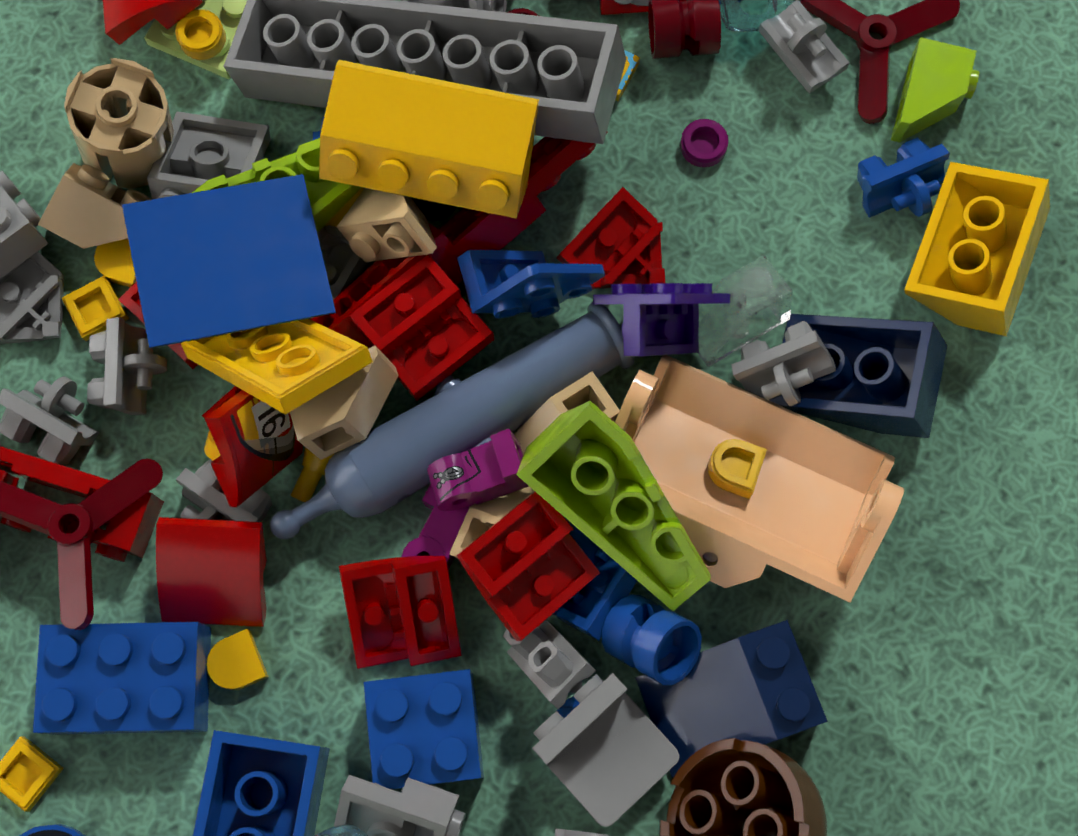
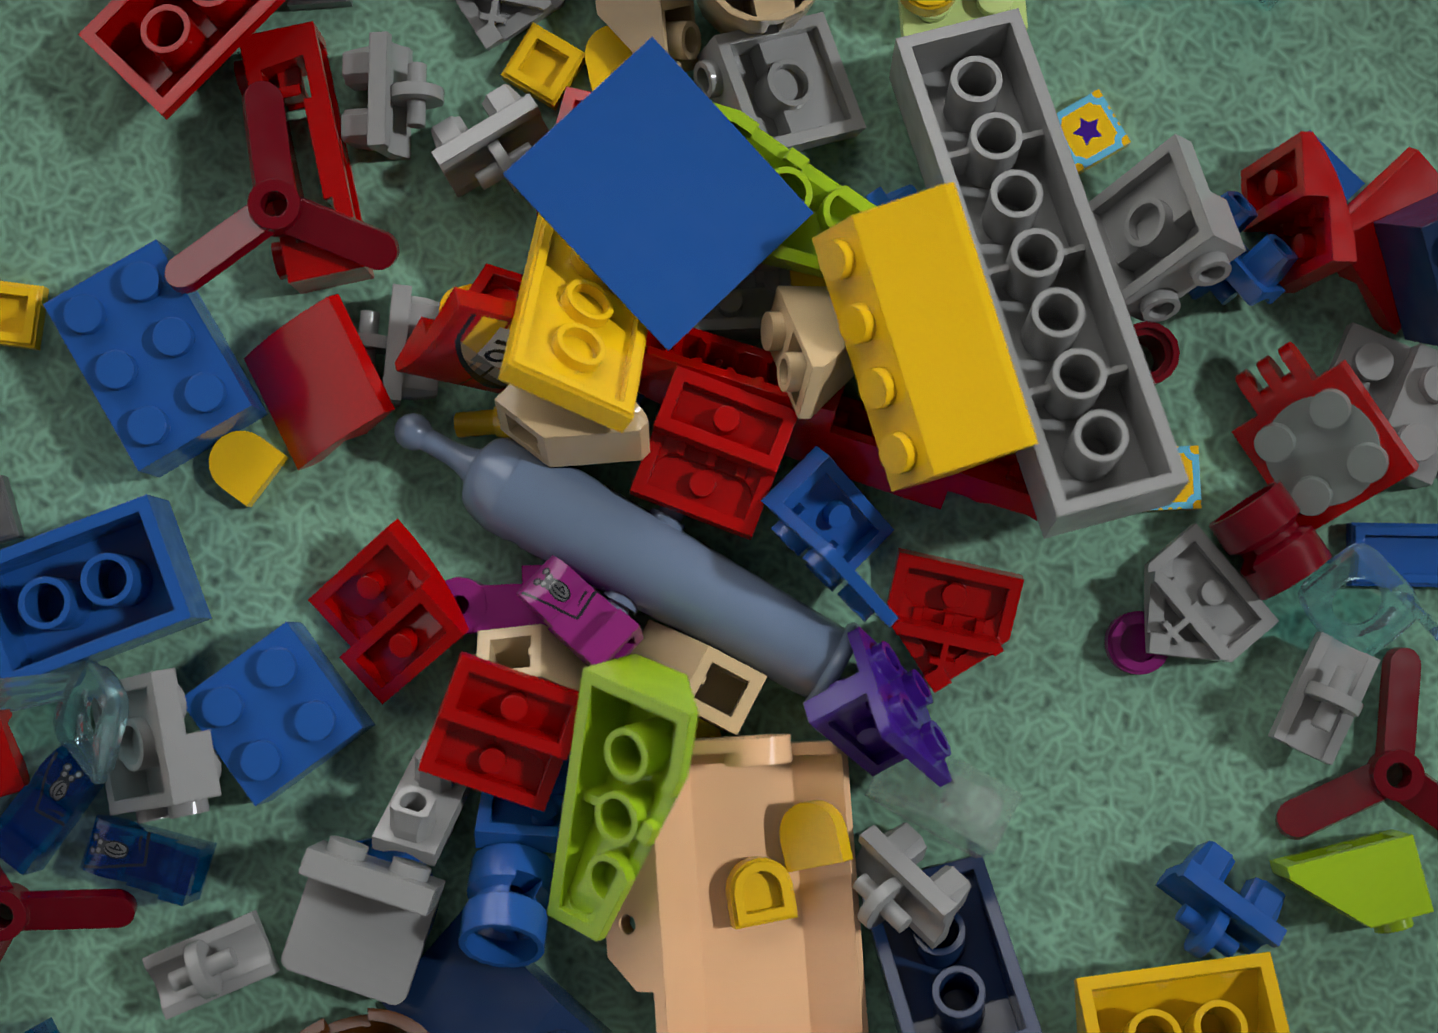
camera: 55 degrees right, 10 degrees up
(699, 89) = (1199, 602): none -> light grey slope
(717, 408) = (813, 836): none -> yellow tile

